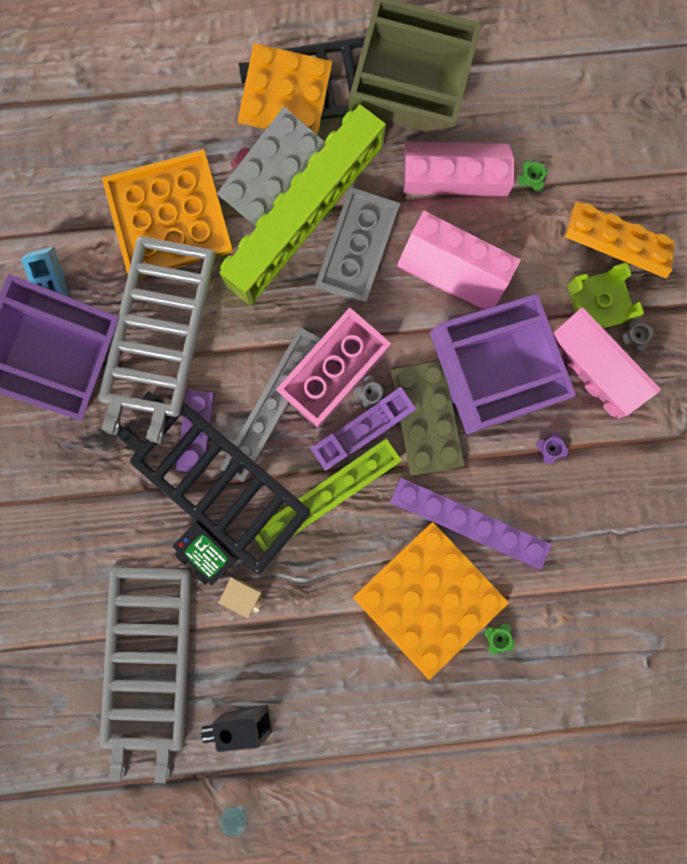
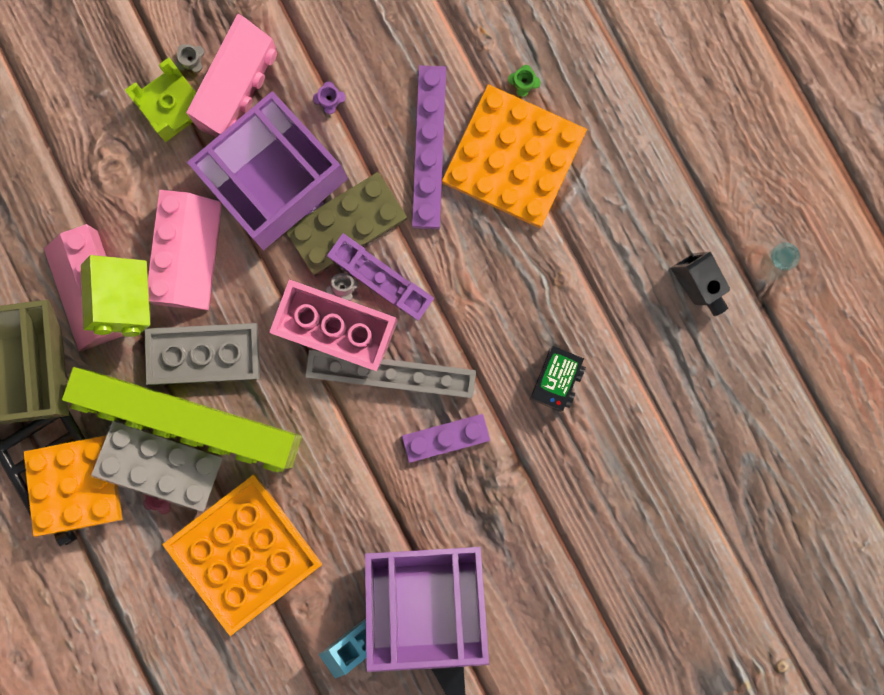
camera: 110 degrees left, 0 degrees up
(112, 371) = (351, 478): light grey bar -> none
(163, 746) = (663, 364): light grey bar -> none
(197, 512) = (456, 379): black bar -> none
(241, 597) = (583, 328): tan brick -> none
(334, 490) = (457, 287): lime plate -> none
(436, 183) = (115, 295): none -> lime brick
(533, 168) = (62, 207): bright green plate -> none
(621, 239) = (102, 106): light orange plate -> none

